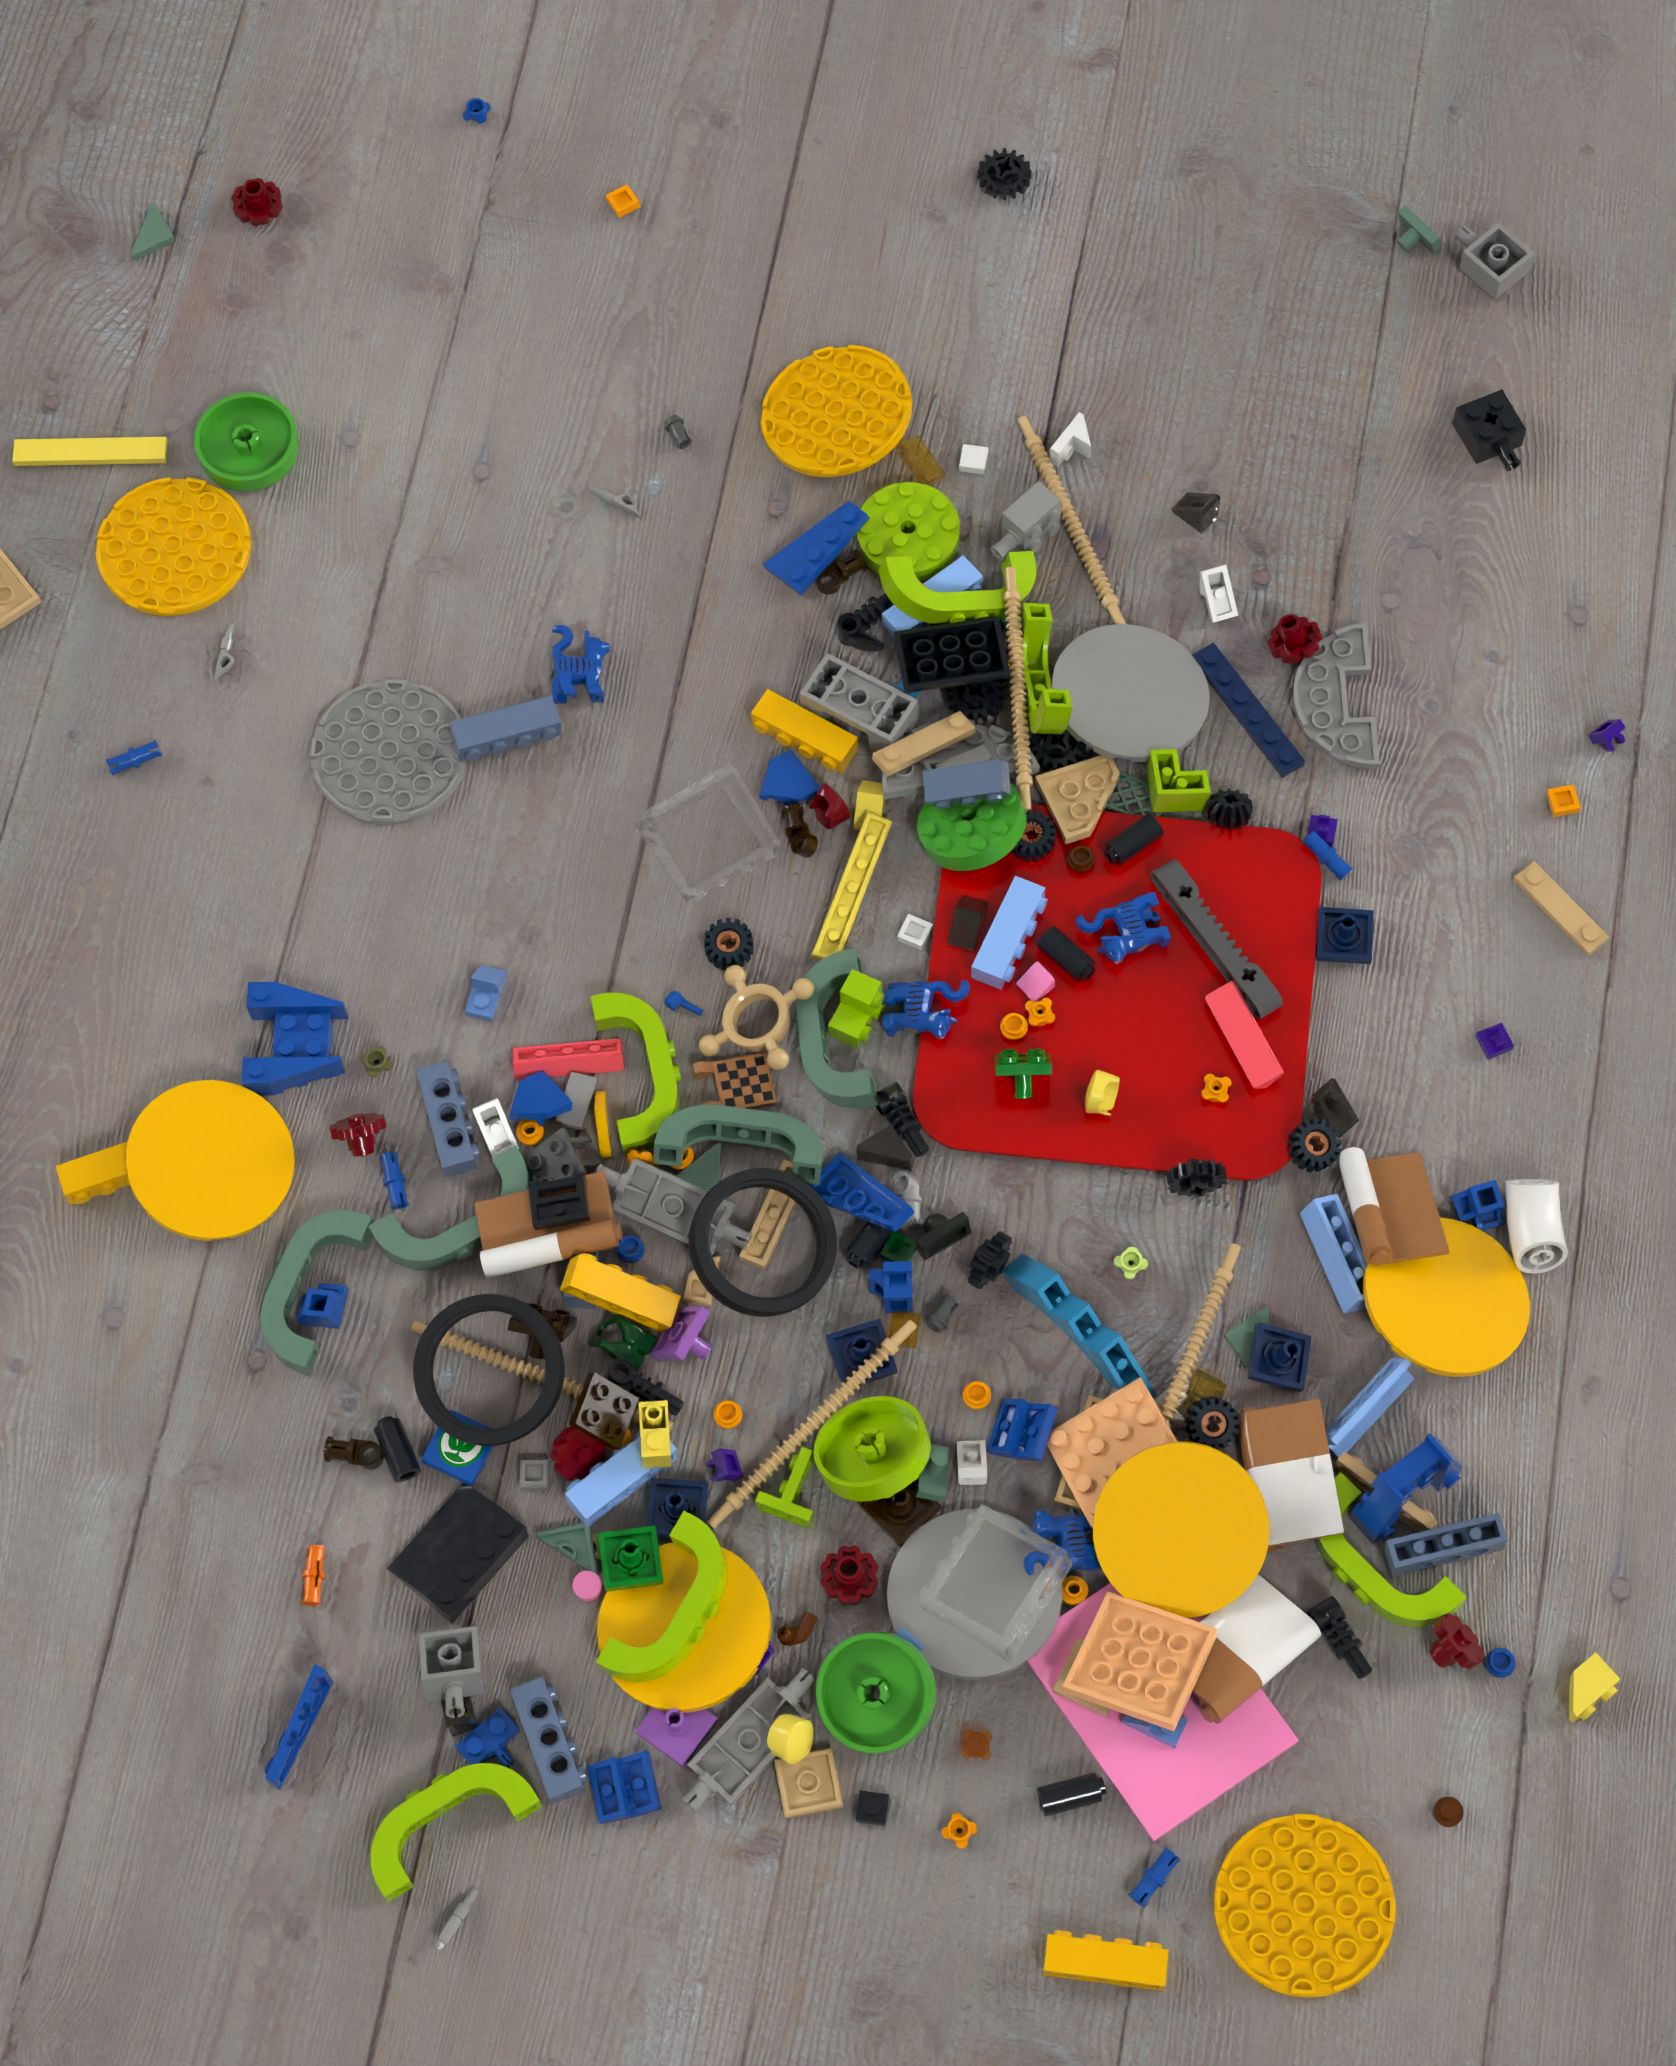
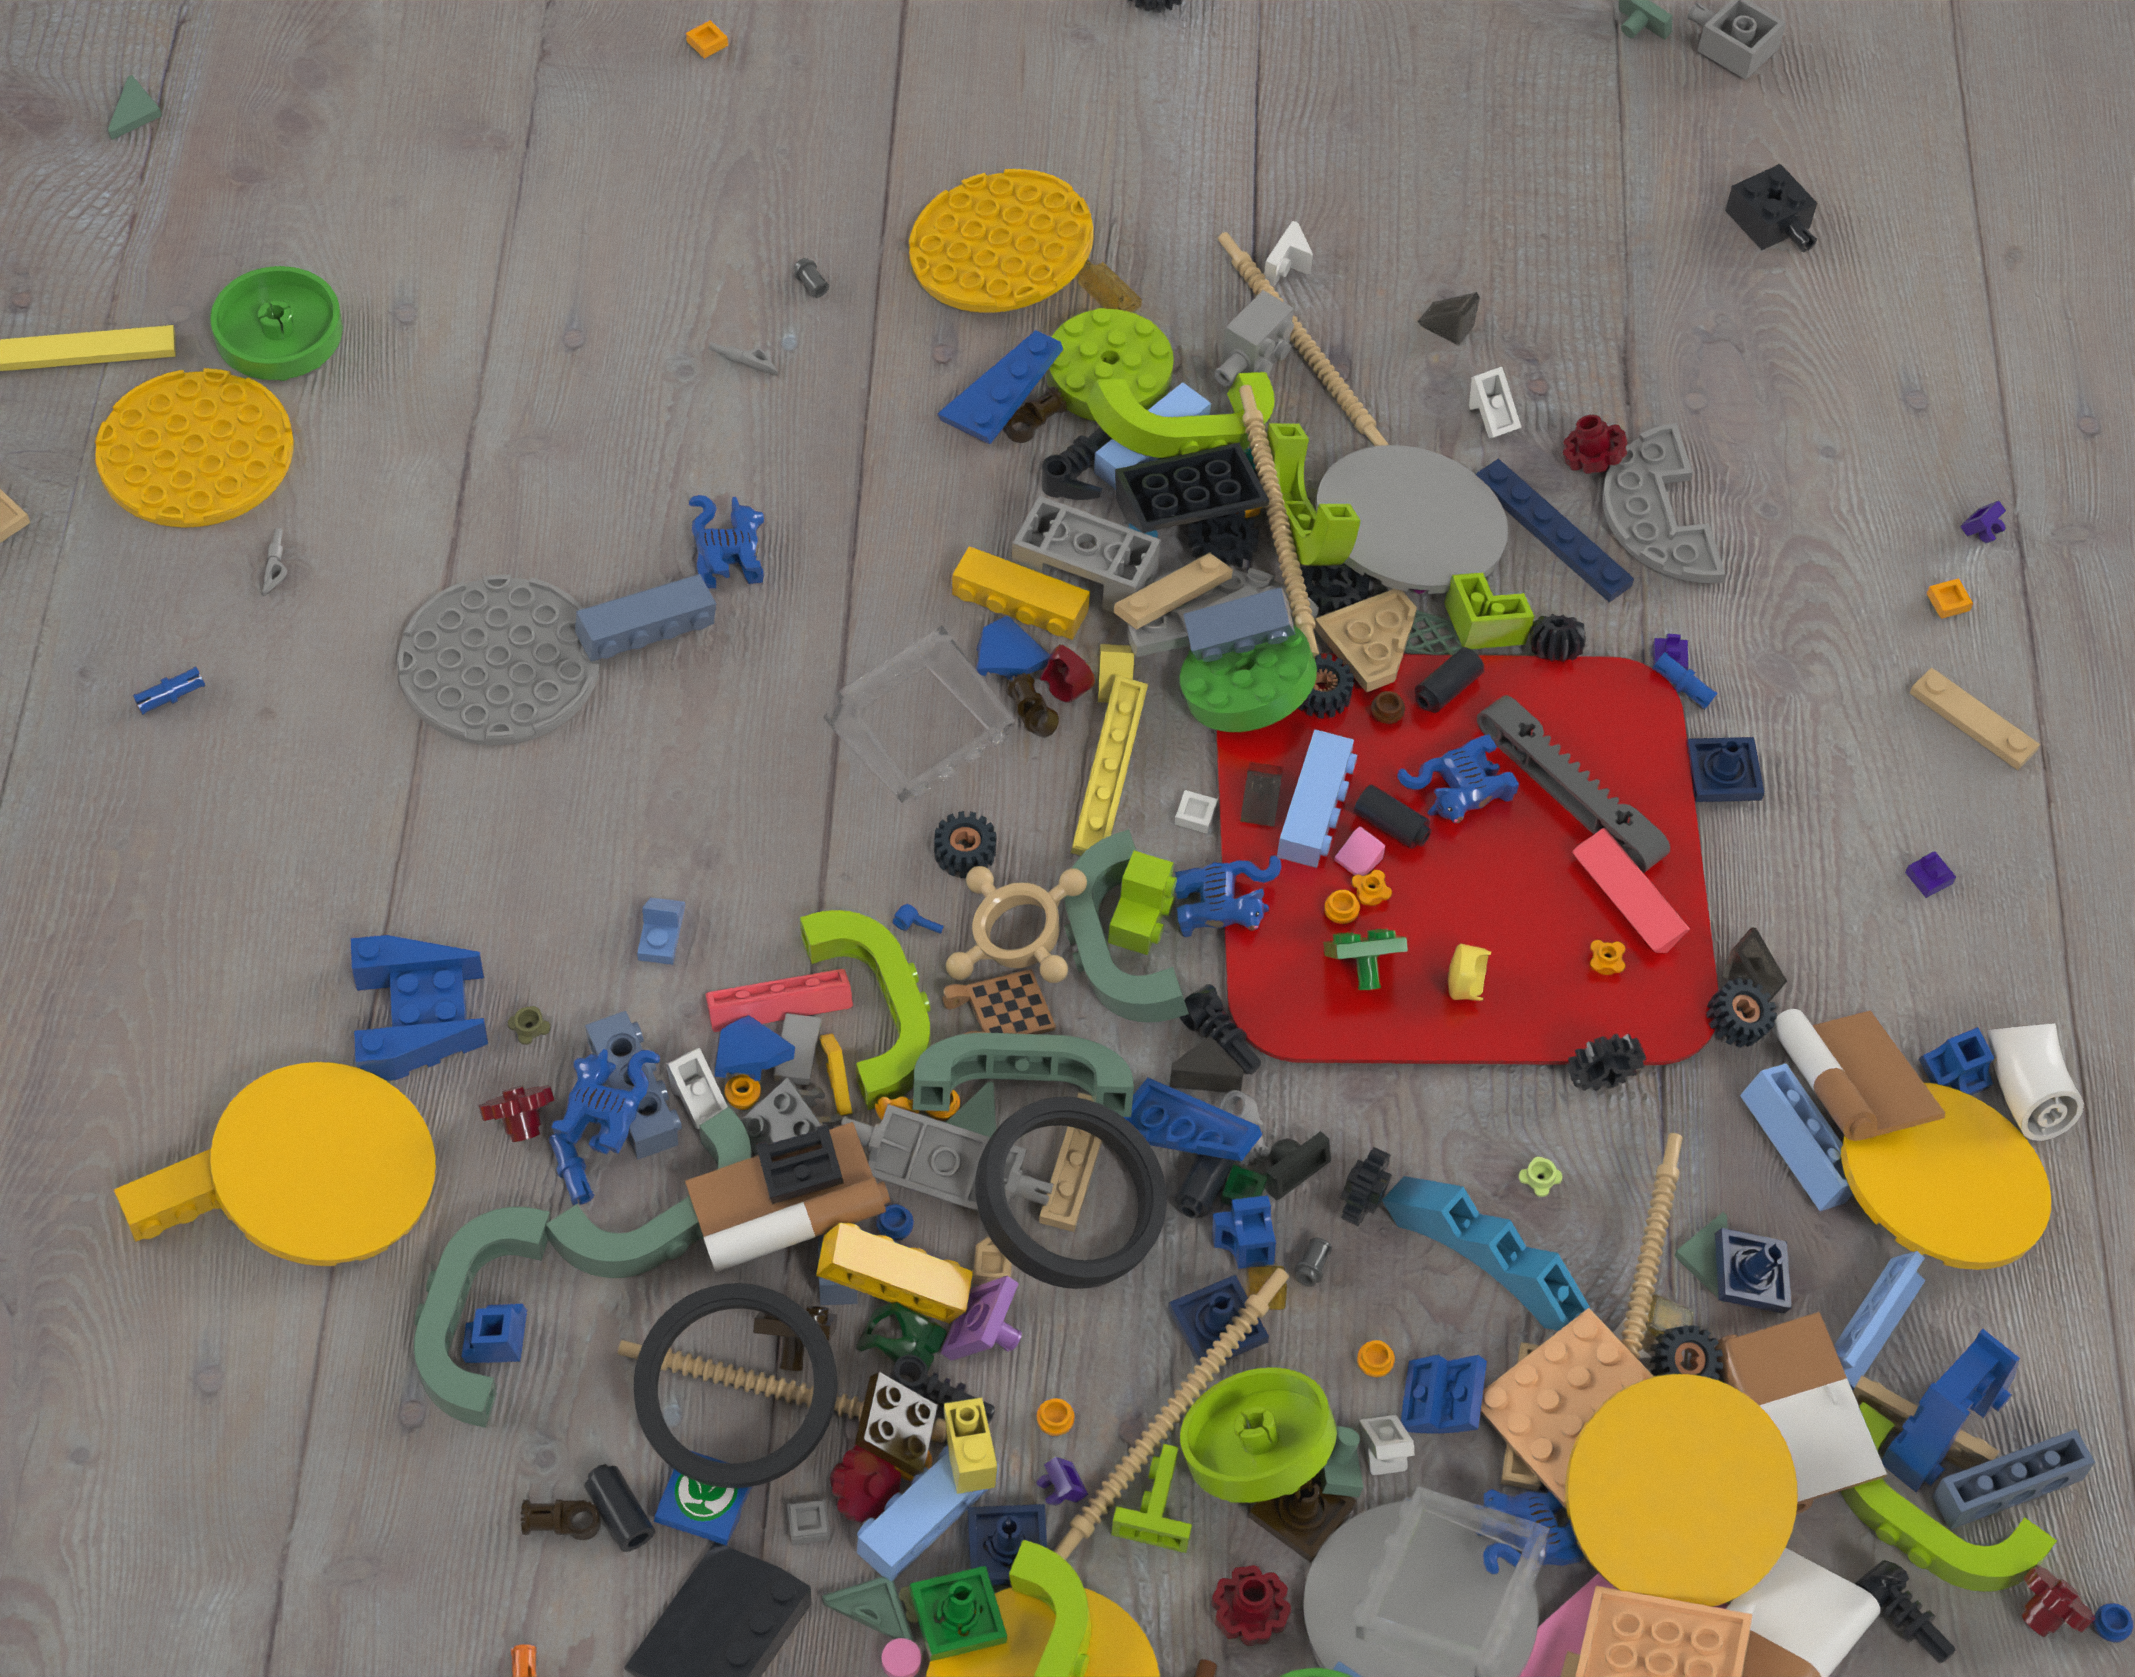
camera: 15 degrees left, 10 degrees down
(257, 202) = (259, 65): dark red plant -> none
(419, 1137) = (603, 1105): none -> blue animal
(973, 459) = (1173, 283): white tile -> none
(1074, 1599) = (1550, 1603): light orange plate -> none

